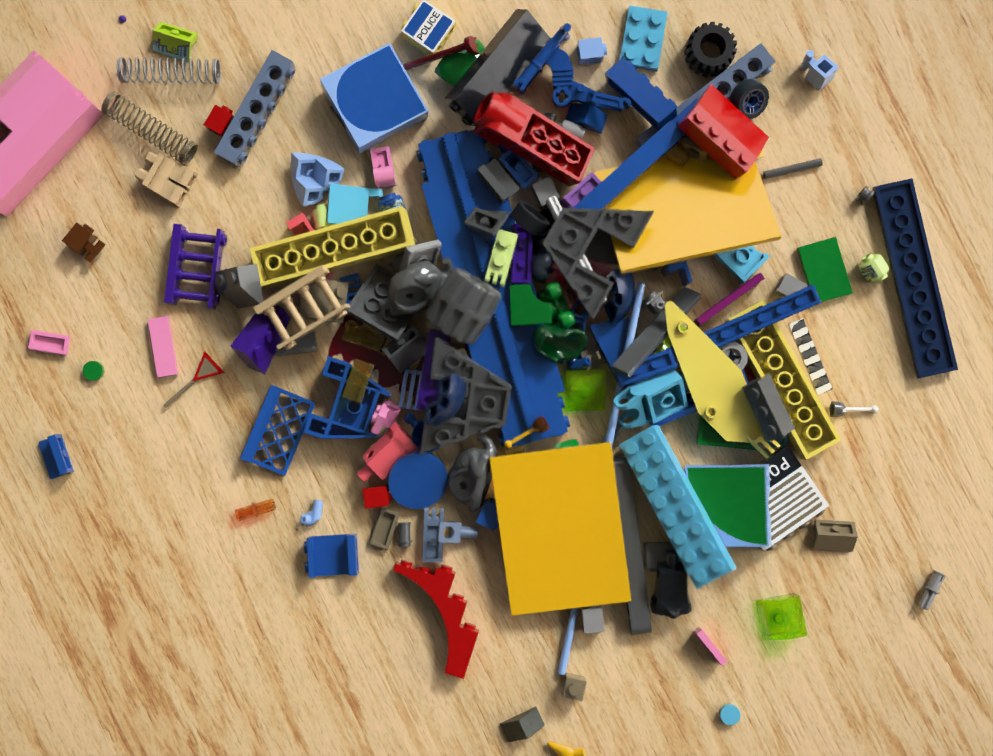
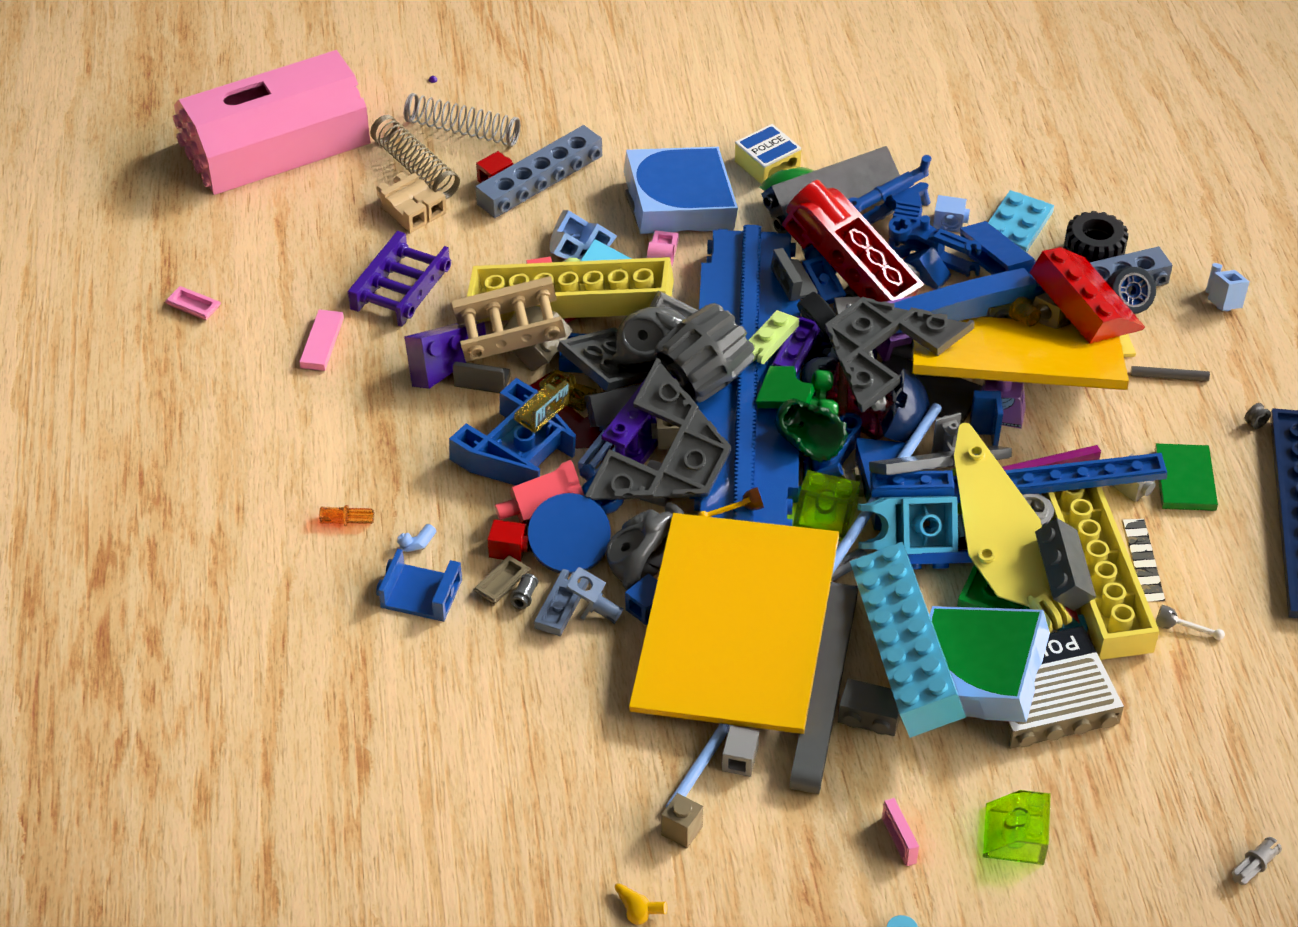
camera: 25 degrees right, 40 degrees down
(55, 456) = (136, 402): blue panel -> none
(81, 240) = (285, 226): reddish brown brick -> none
(93, 370) = (227, 340): green tile -> none
(173, 41) = (479, 100): lime panel -> none
(206, 369) = (361, 373): piece -> none
(240, 285) = (439, 290): dark grey slope -> none
(262, 422) = (398, 433): blue fence -> none
(384, 416) = (553, 453): bright pink plate -> none
(438, 585) = (549, 717): red arch -> none
(451, 397) = (648, 432): dark blue brick -> none
(468, 45) = (808, 158): dark red piece -> none
(486, 222) = (765, 301): dark grey slope -> none
(522, 725) = (588, 850): pearl dark grey slope -> none
(671, 589) = (866, 732): black piece -> none
(742, 261) = (1066, 428): medium azure wing -> none
(834, 535) = (1123, 759): dark tan panel -> none
(873, 268) = (1252, 485): yellowish green head -> none

